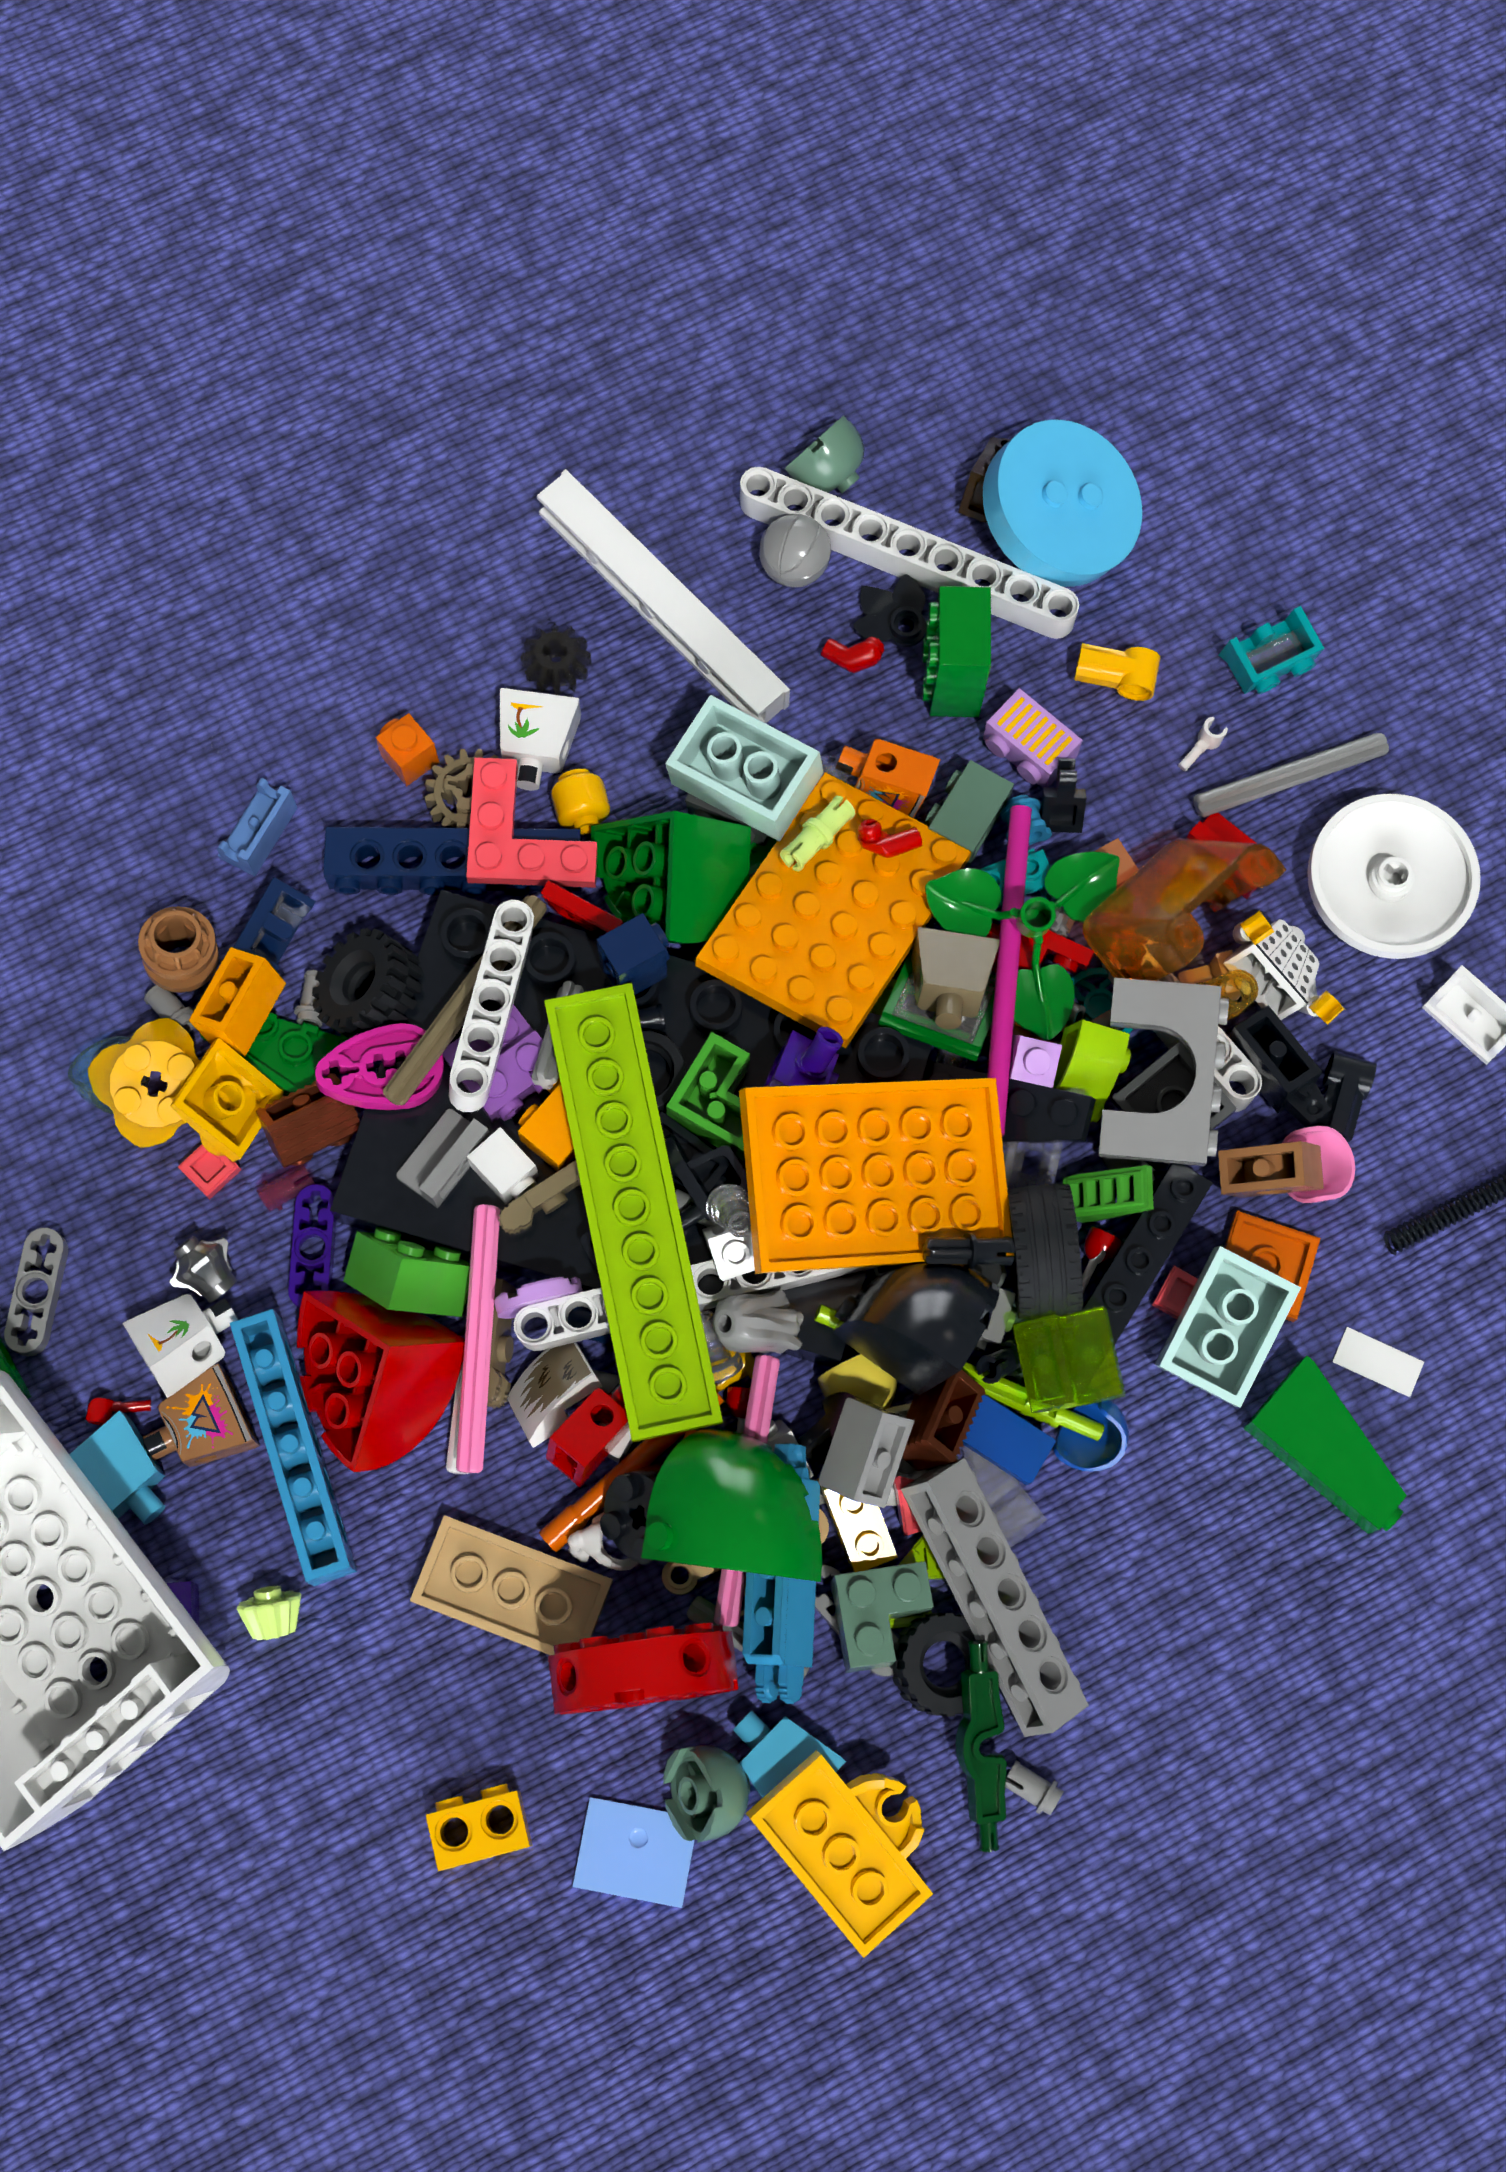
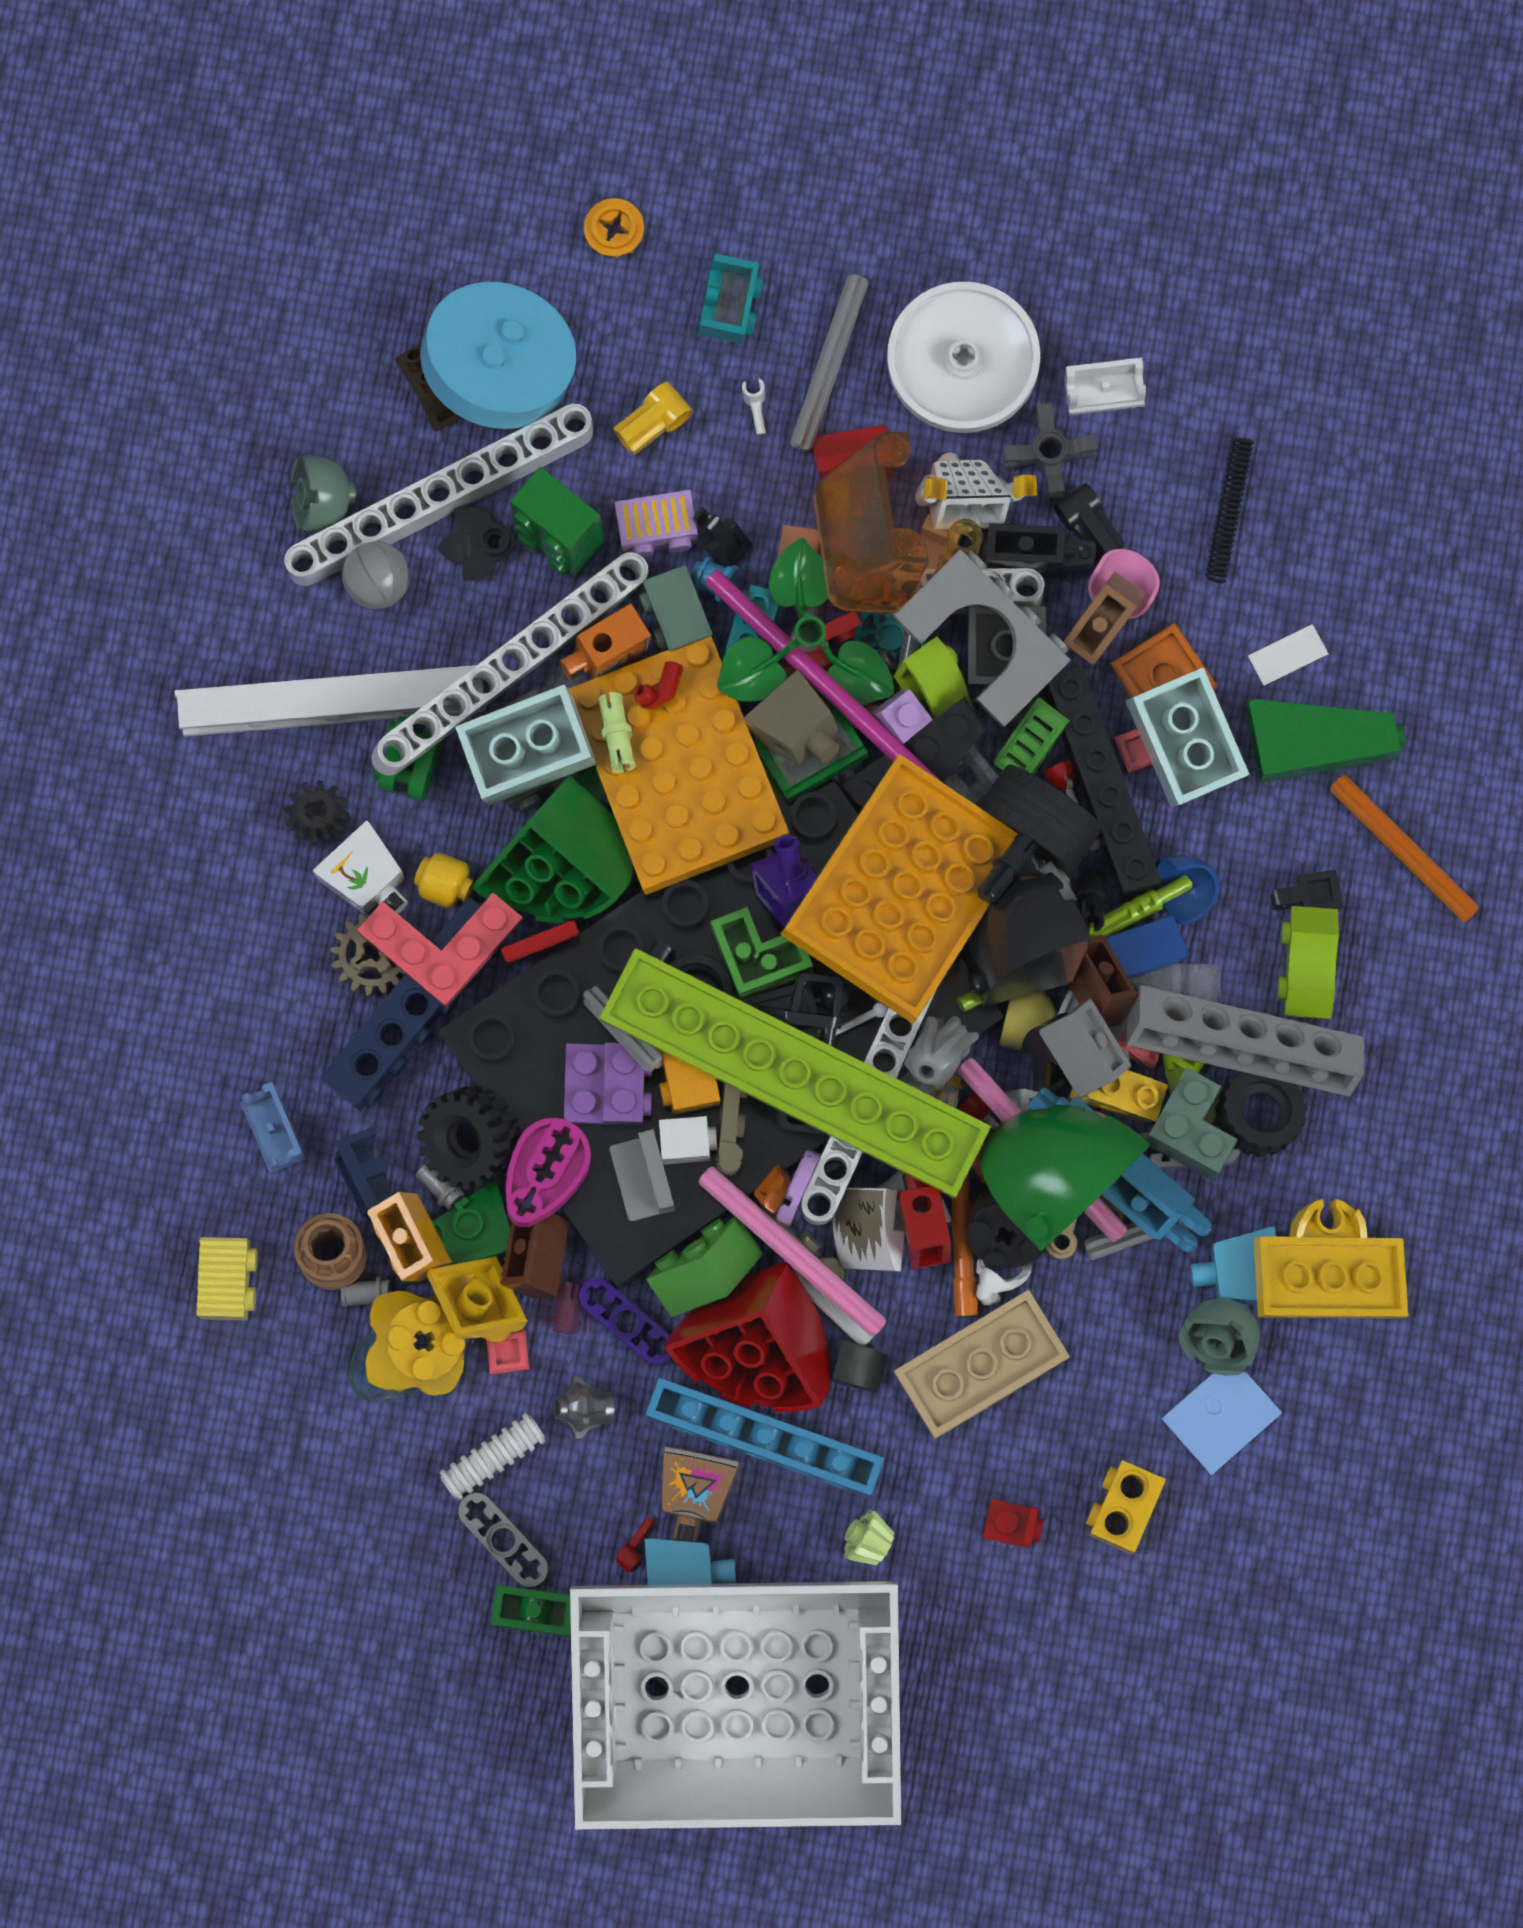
camera: 45 degrees left, 5 degrees up
(94, 885) = (225, 1278): none -> light yellow brick
(102, 1224) = (492, 1456): none -> white piece
(180, 1340) = (625, 1461): white torso -> none
(386, 1735) = (1012, 1524): none -> red bracket
(407, 749) = (300, 974): orange brick -> none
(425, 1482) = (859, 1367): none -> pearl dark grey brick
(446, 1024) = (542, 1074): dark tan axle -> none
(491, 1024) = (564, 1040): white beam -> none
(515, 1275) = (773, 1189): none -> orange tile
(634, 954) = (613, 931): dark blue brick -> none
(642, 1668) = (1112, 1310): red brick -> none
(662, 696) = (423, 771): none -> green brick
(729, 1209) = (851, 1006): clear cone -> none
(730, 1254) = (872, 1025): white bracket -> none
(787, 710) = (497, 675): none -> white beam
(855, 657) = (490, 596): red arm -> none
(981, 1721) = (1318, 1116): dark green piece -> none
(1033, 1788) = (1387, 1118): light grey pin -> none
(1069, 1360) = (1128, 862): clear neon green slope -> none
(1117, 1601) = (1310, 962): none -> lime brick
(1183, 1555) = (1312, 890): none -> black plate
(1259, 506) = (607, 213): none -> light orange gear
(1293, 1606) = (1404, 848): none -> orange axle
(1400, 1034) = (1077, 448): none -> dark grey pin

